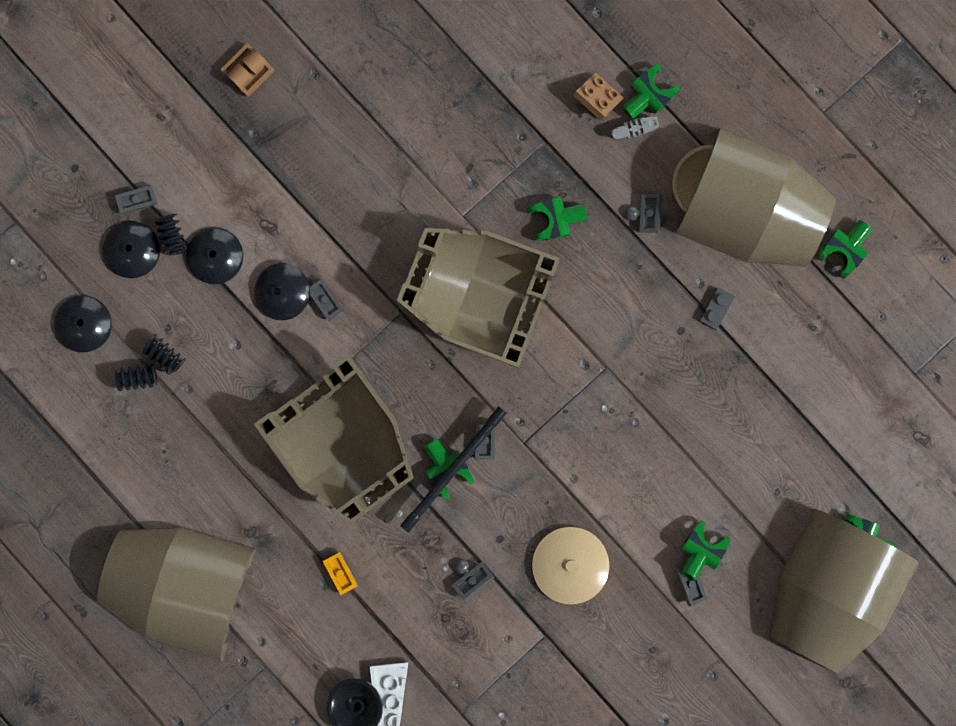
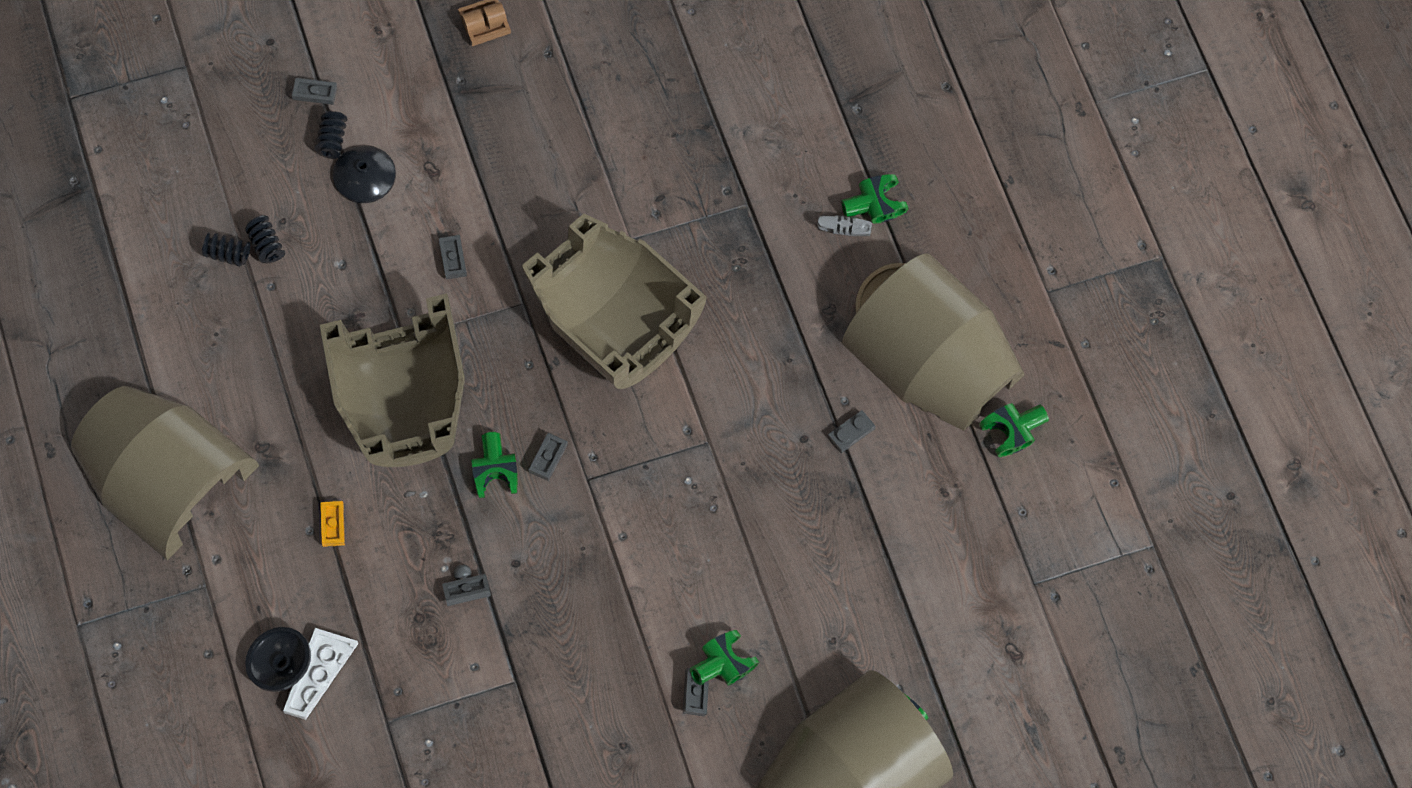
camera: 25 degrees right, 20 degrees down
(95, 327) = (204, 192): black dish -> none
(144, 250) = (286, 145): black dish -> none
(293, 291) = (417, 240): black dish -> none
(412, 519) = (438, 493): black piece -> none
(558, 218) = (726, 276): green connector -> none
(570, 565) = (577, 620): tan dish -> none
(598, 96) = (821, 181): medium nougat plate -> none
(649, 214) = (822, 311): dark grey plate -> none

